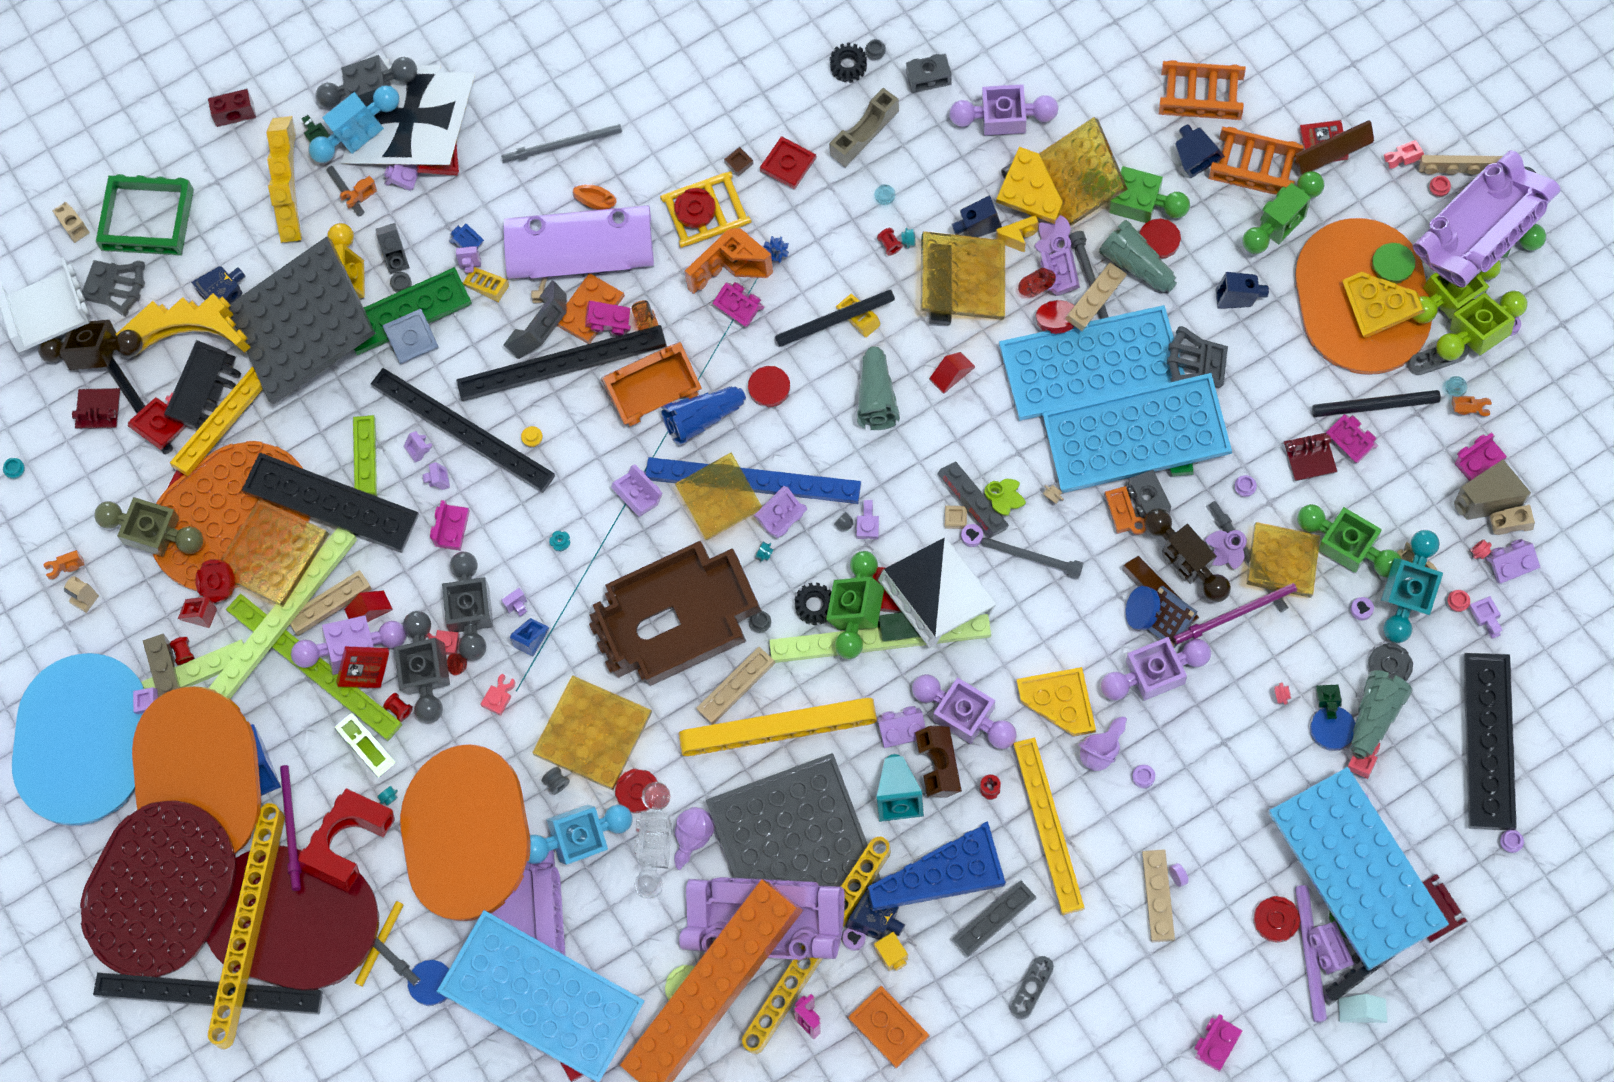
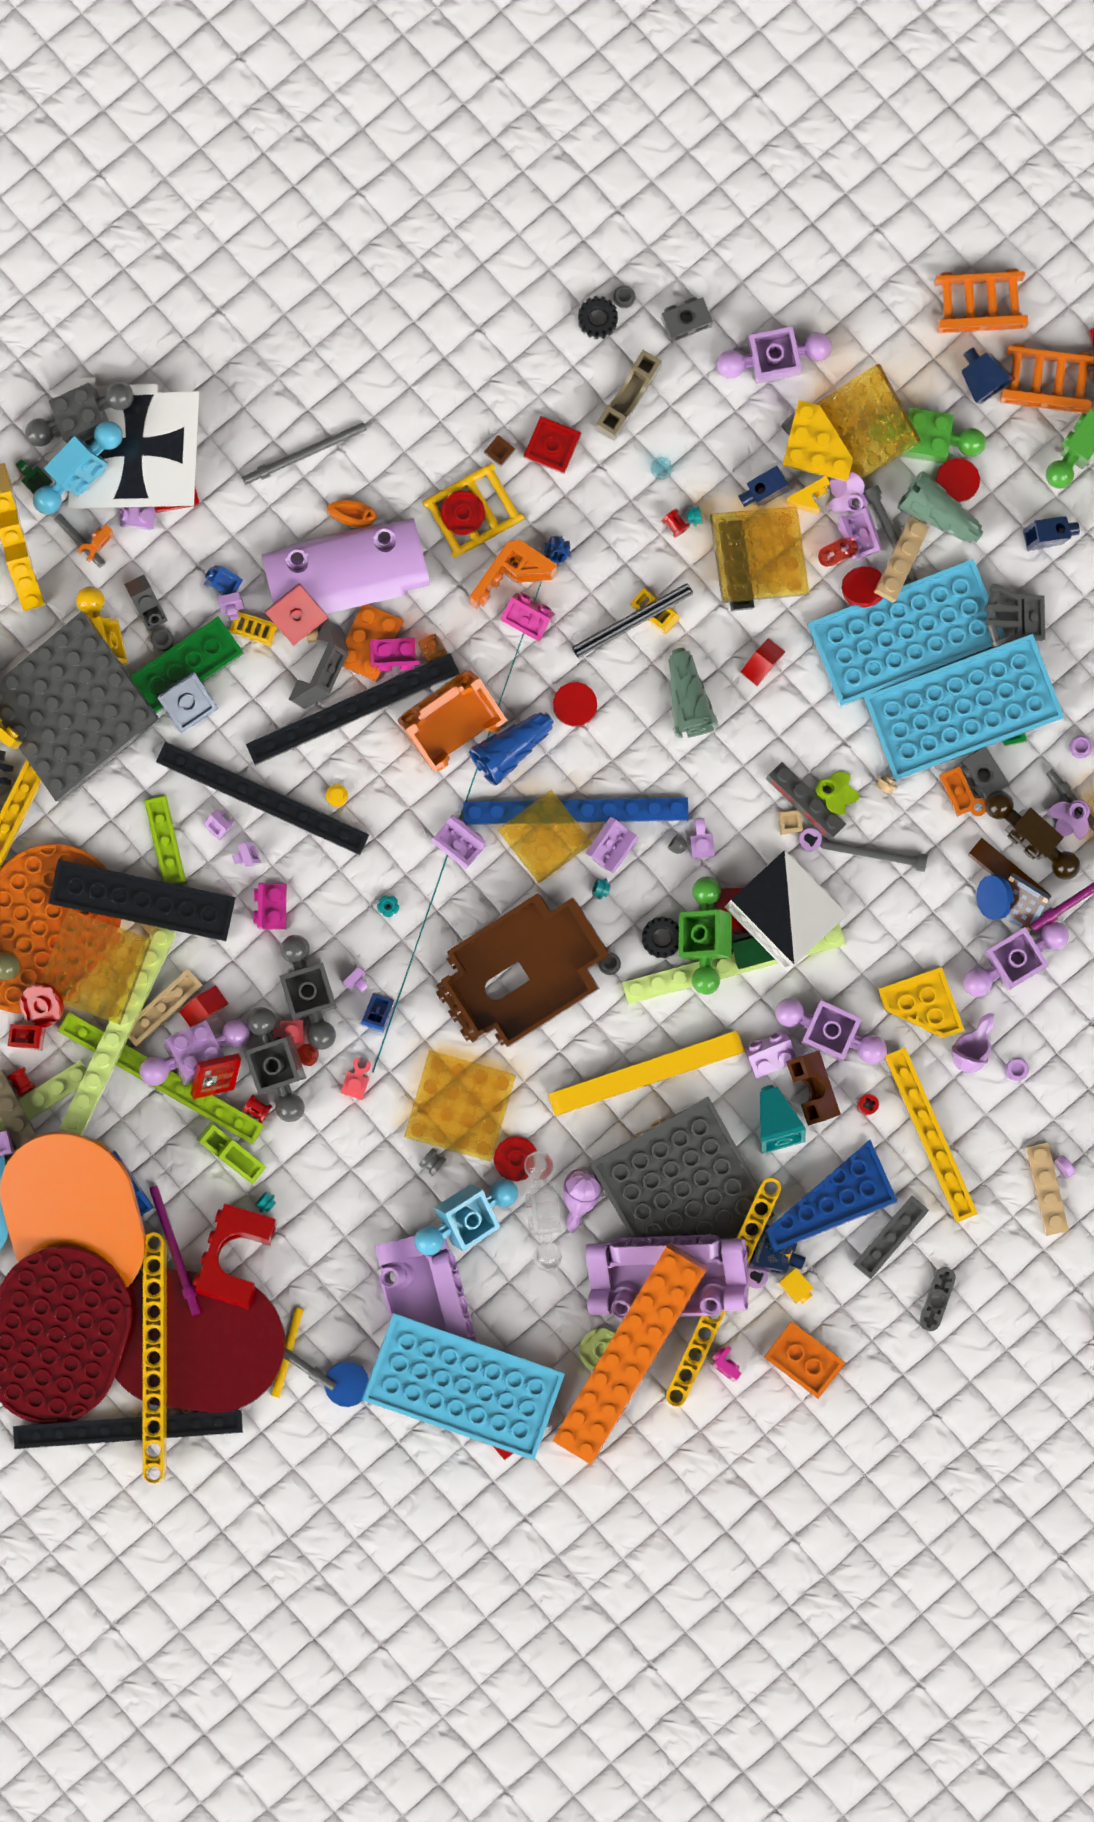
camera: 20 degrees left, 15 degrees up
(465, 832) = (354, 1232): orange tile -> none
(524, 270) = (296, 614): none -> plate
(735, 685) = (597, 1036): tan plate -> none

